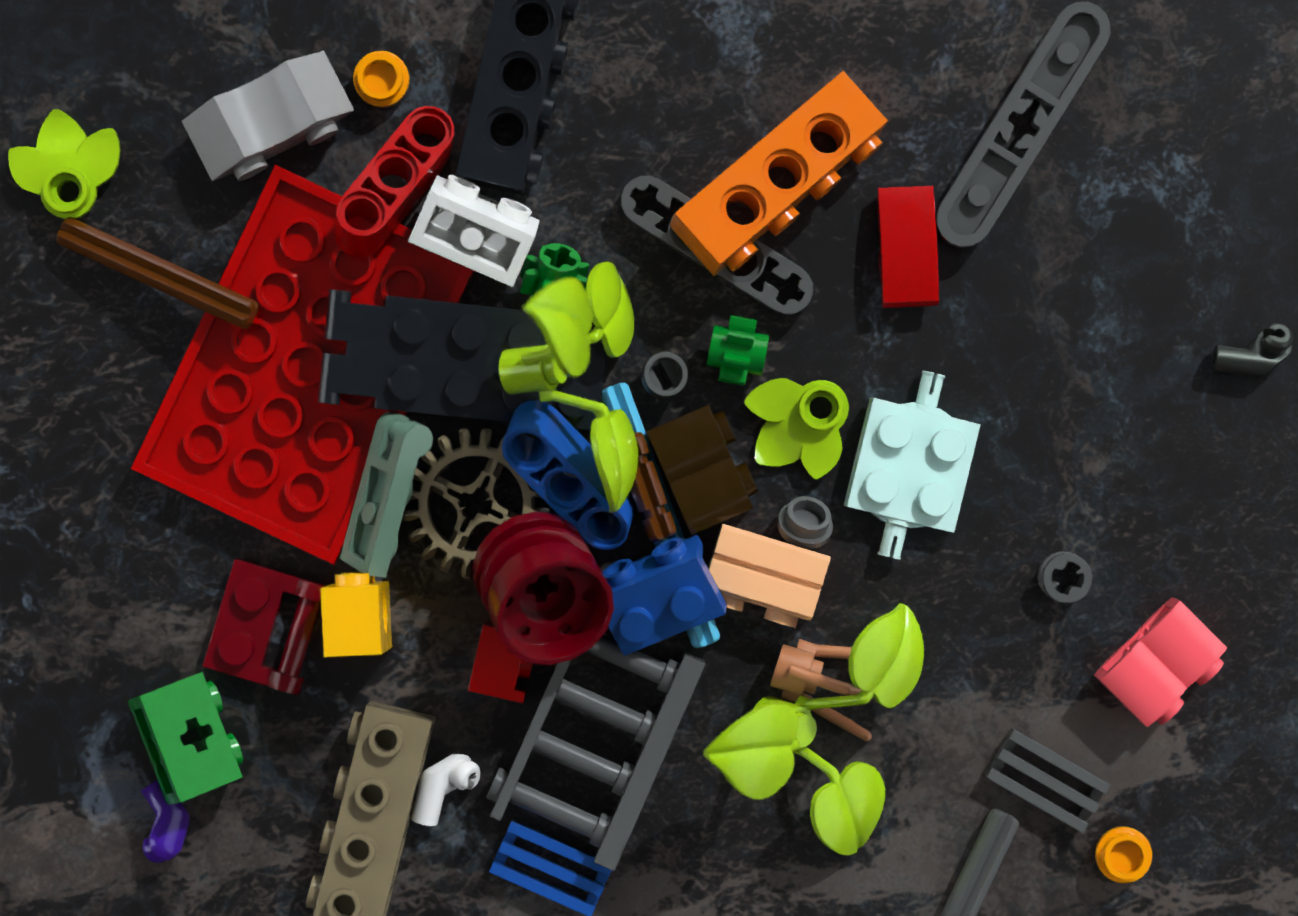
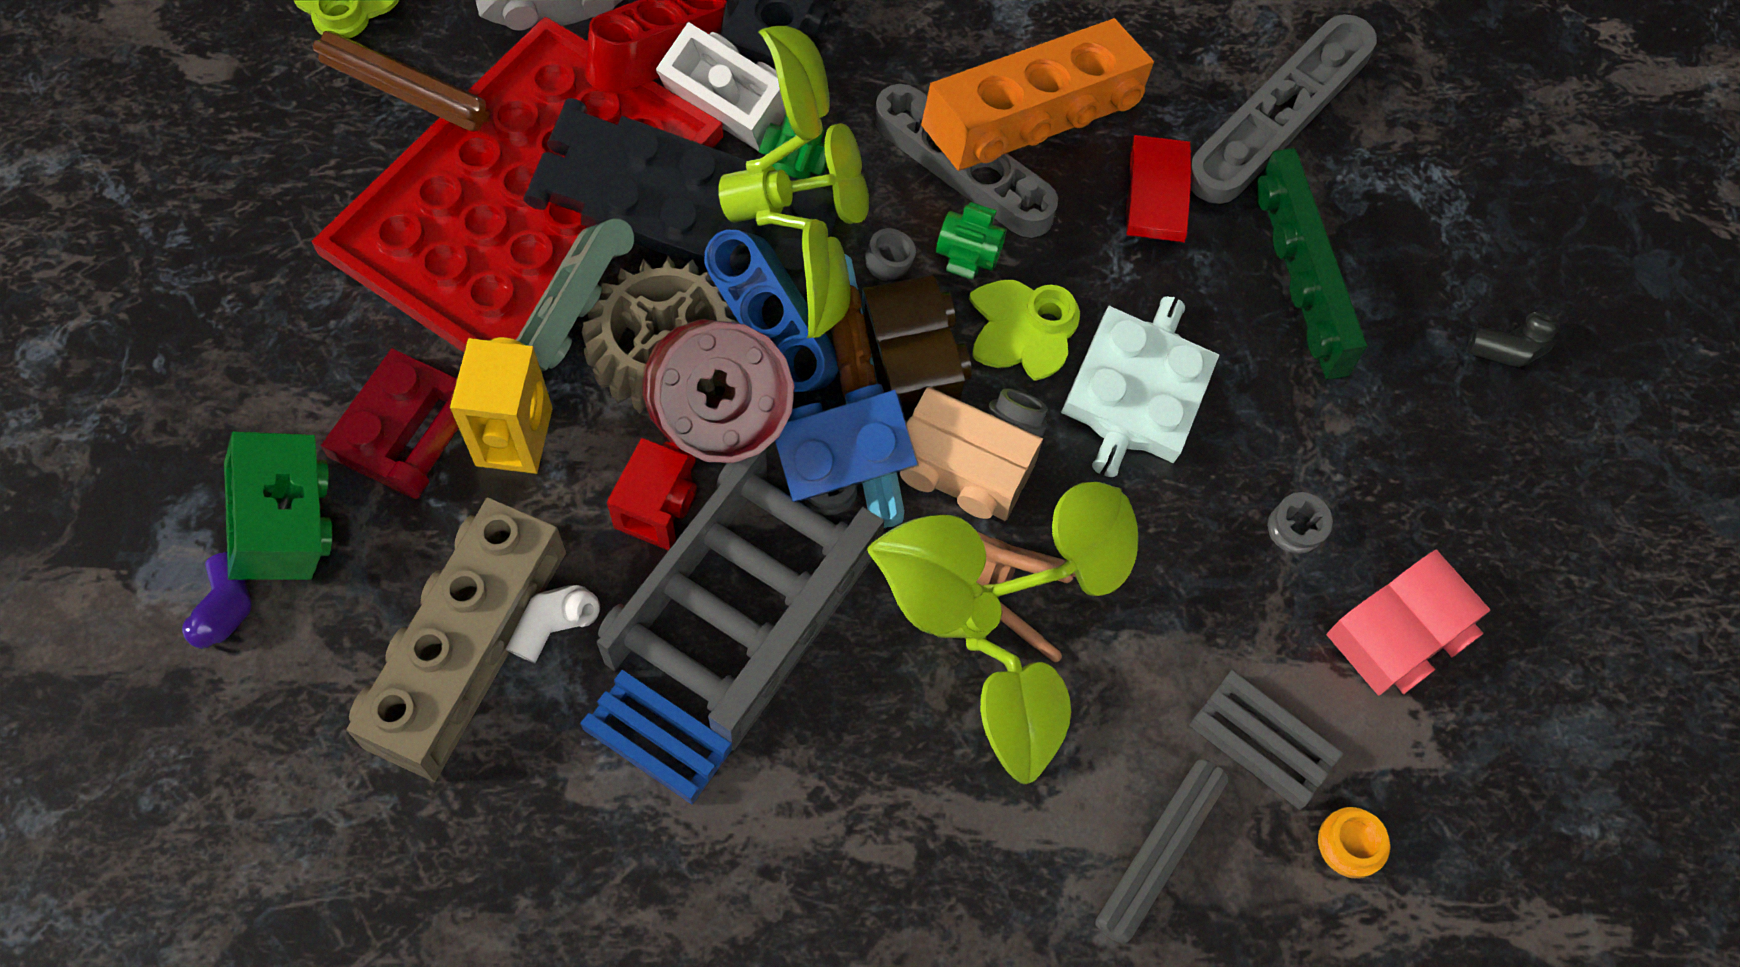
camera: 10 degrees right, 25 degrees down
(1047, 288) = (1314, 272): none -> dark green plate

